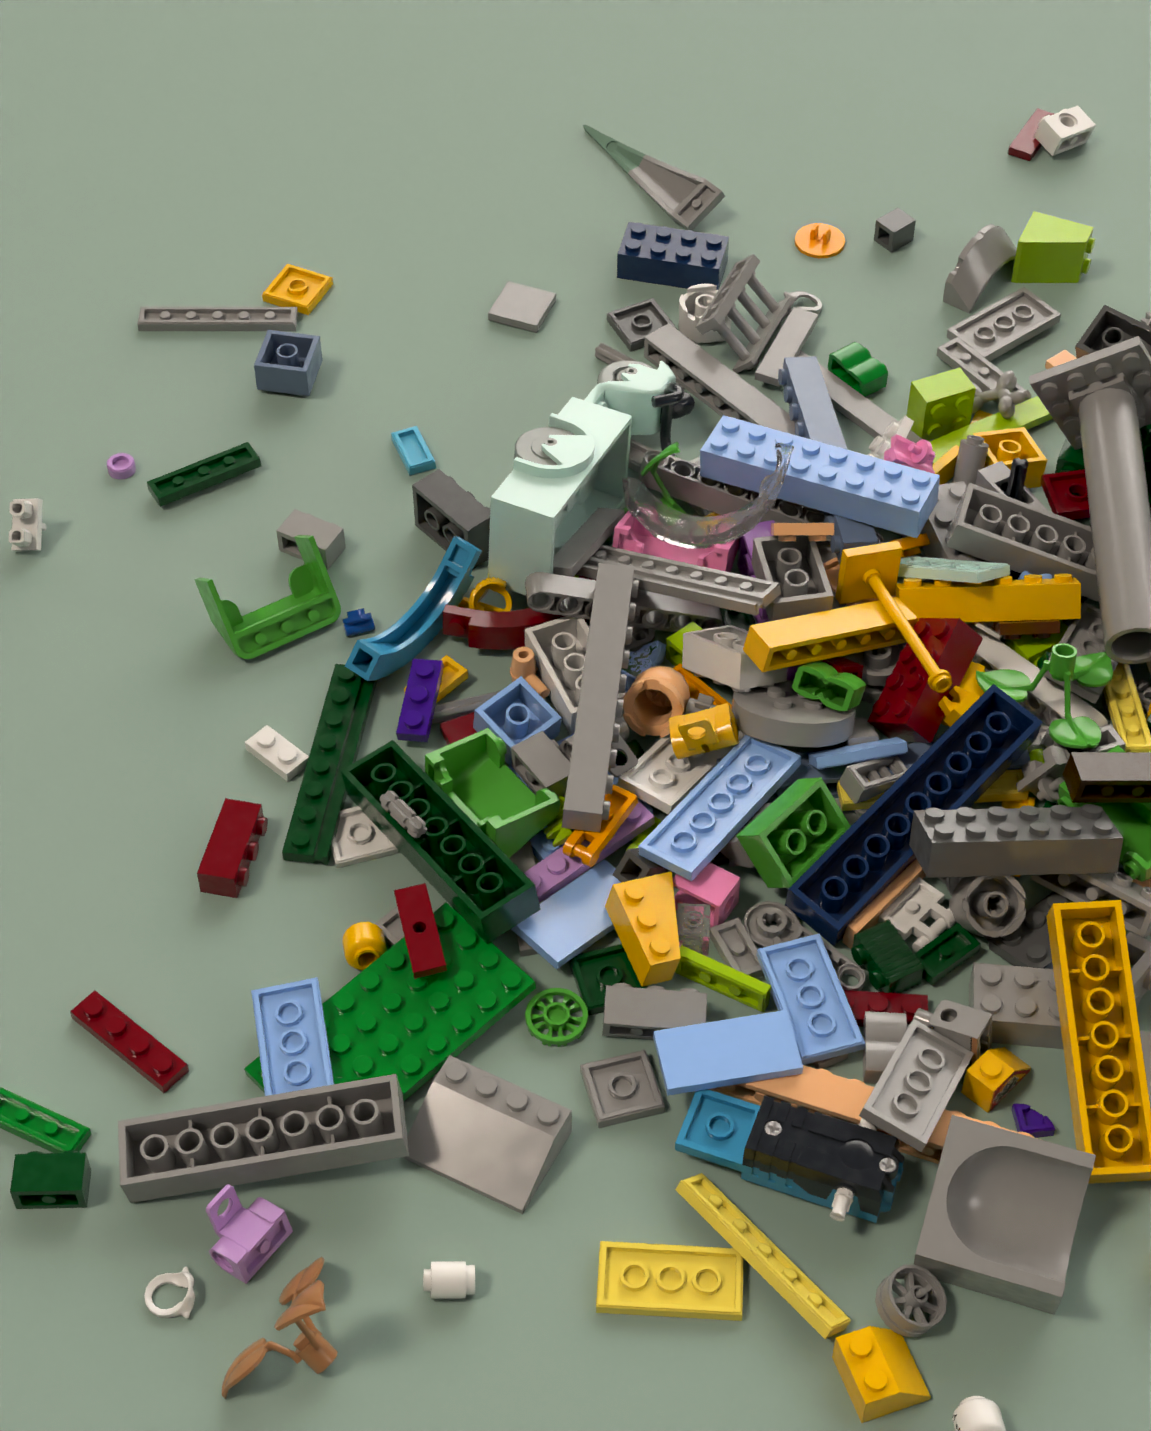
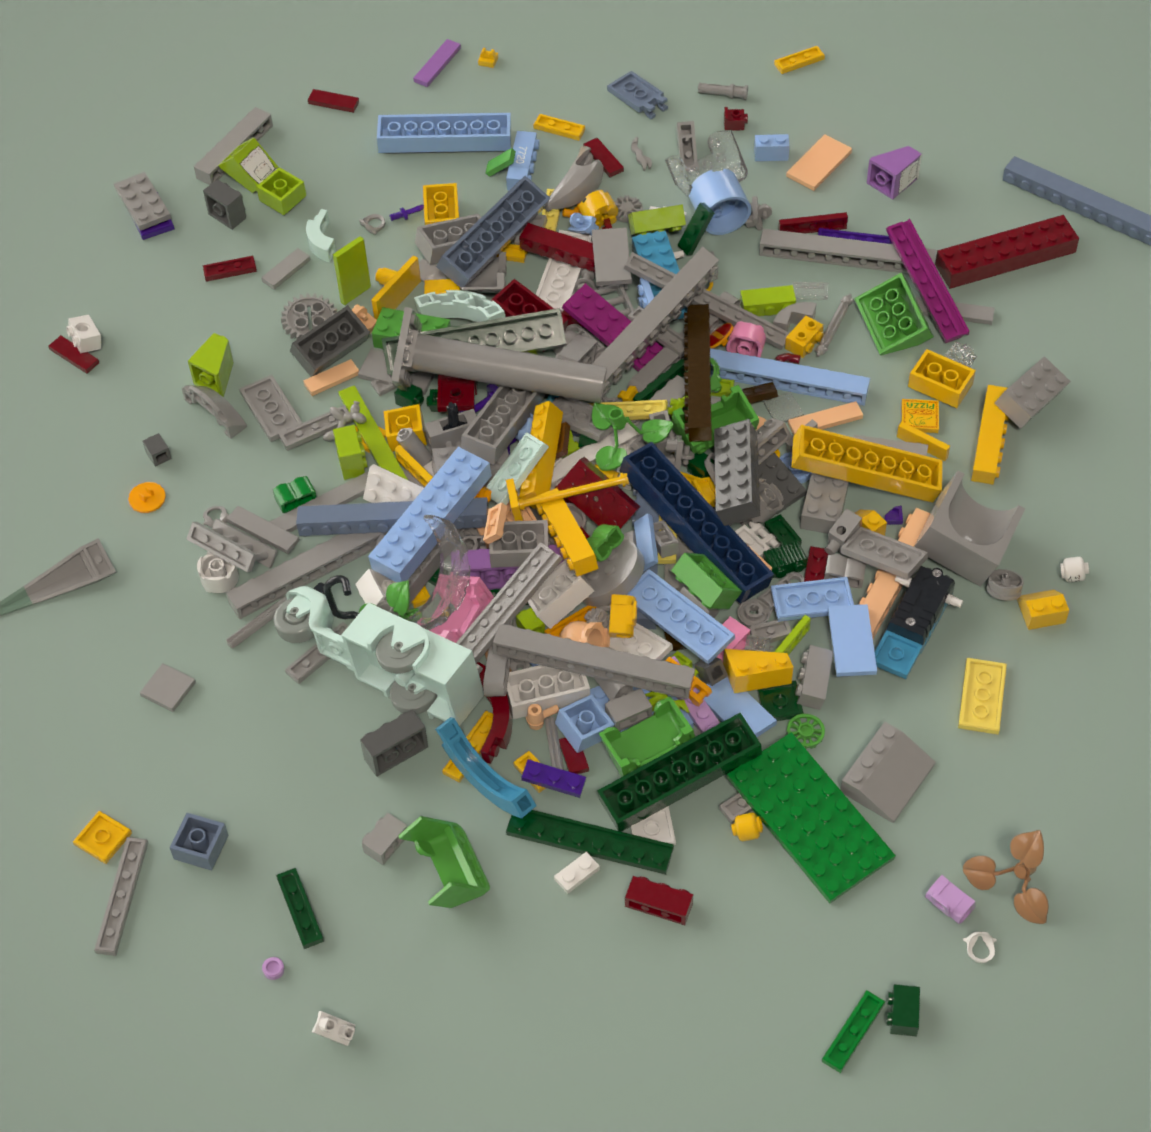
camera: 80 degrees left, 5 degrees up
(129, 1041) = (801, 968): dark red plate -> none
(262, 1138) = (893, 884): light grey brick -> none
(292, 1037) = (823, 866): light blue tile -> none
(358, 622) = (467, 816): blue plate -> none
(403, 814) = (669, 783): light grey axle -> none
(413, 450) = (303, 770): medium azure tile -> none
(417, 917) = (766, 784): dark red tile -> none
(449, 1280) = (981, 799): white brick -> none
(480, 590) = (467, 730): yellow piece -> none
(622, 1088) = (857, 704): light grey tile -> none
(637, 322) = (208, 615): dark grey tile -> none
(671, 256) = (147, 584): dark blue brick -> none
(763, 1256) = (970, 649): light yellow tile -> none
(911, 454) = (413, 467): bright pink hips -> none
(962, 703) = (633, 482): yellow tile -> none

